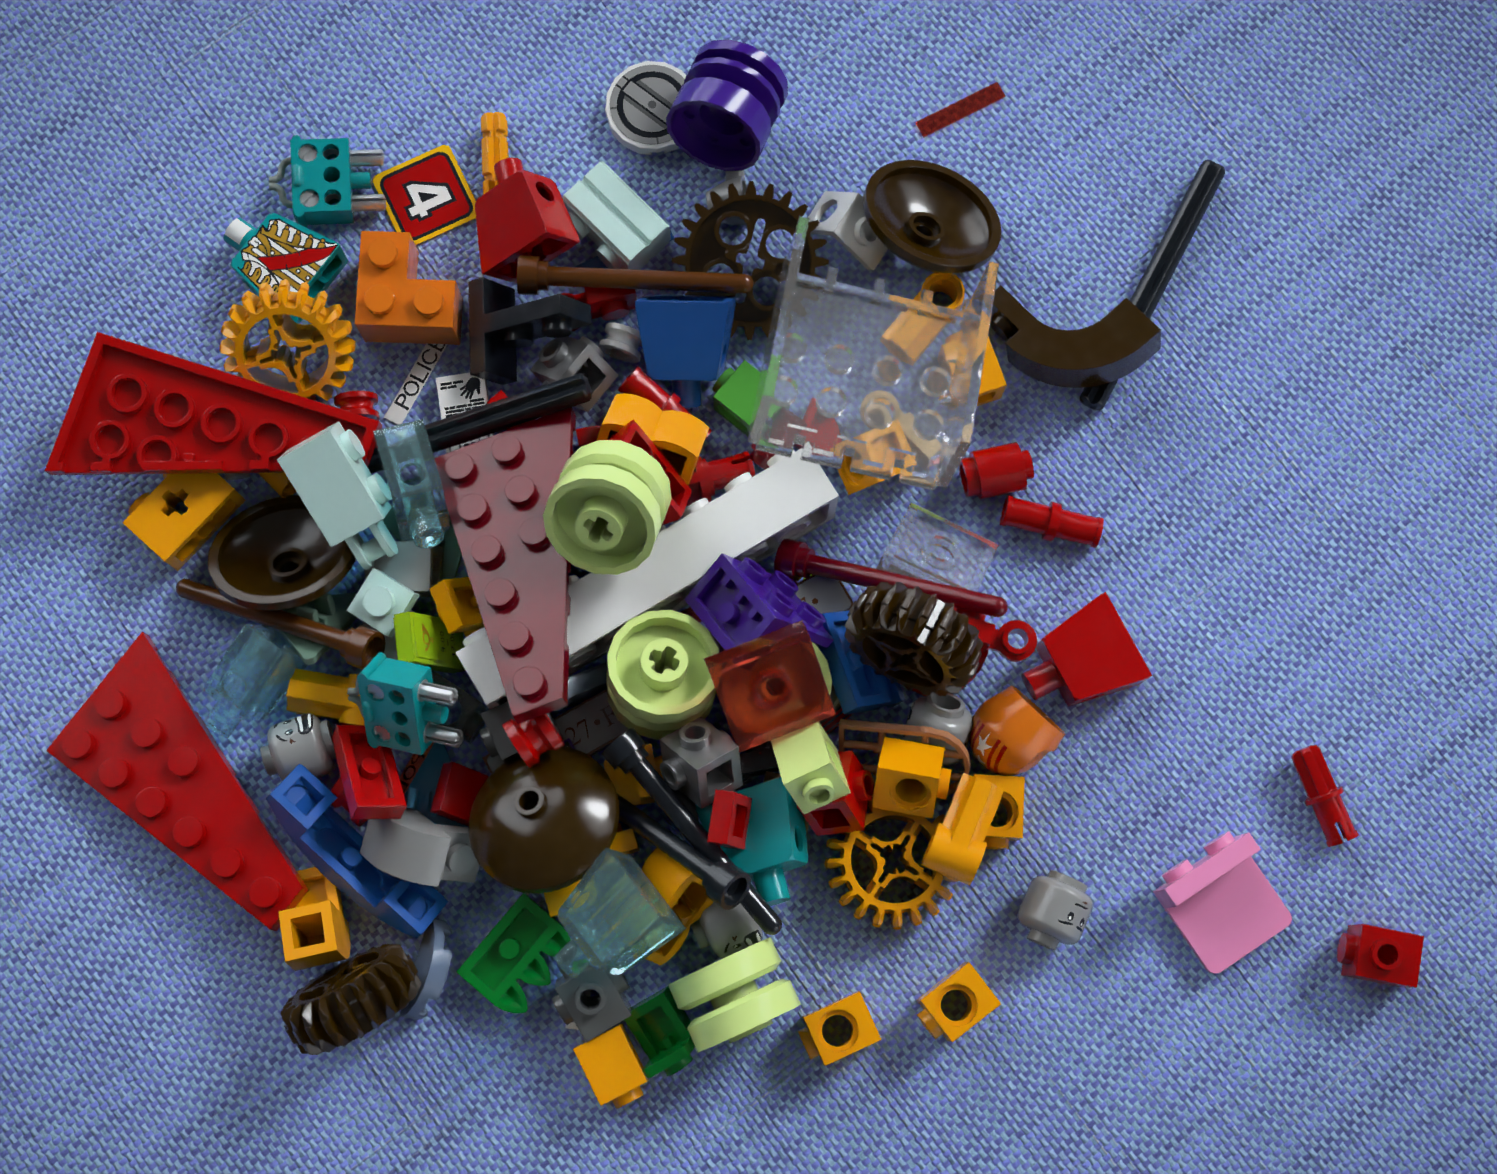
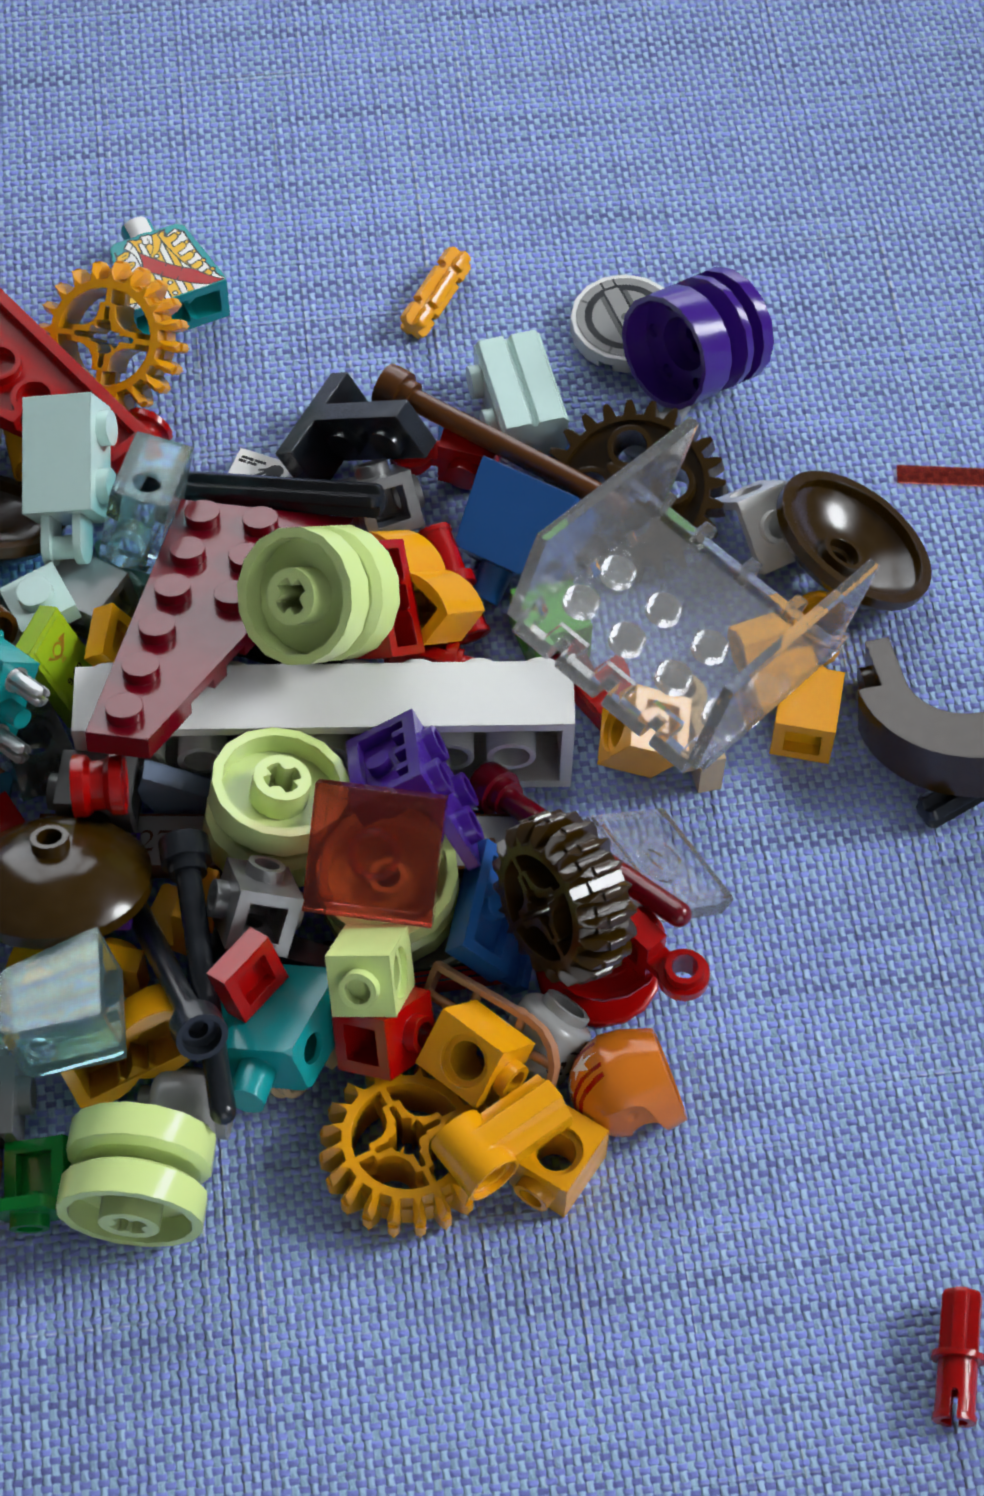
camera: 30 degrees right, 20 degrees down
(312, 180) = (255, 230): teal piece -> none
(396, 304) = (253, 357): orange brick -> none
(414, 382) = (240, 438): white sticker -> none
(427, 194) = (346, 296): sticker -> none
(521, 218) = (424, 336): red torso -> none
(621, 342) = (448, 504): white bush -> none
(862, 1029) = (248, 1315): light orange brick -> none
(979, 1003) = (396, 1313): light orange brick -> none
(996, 471) = (774, 820): red brick -> none
(1051, 521) = (807, 903): red pin -> none
(1055, 910) = (559, 1300): light grey head -> none
(1087, 657) = (762, 1057): red torso -> none
(1223, 902) = (765, 1401): bright pink bracket -> none

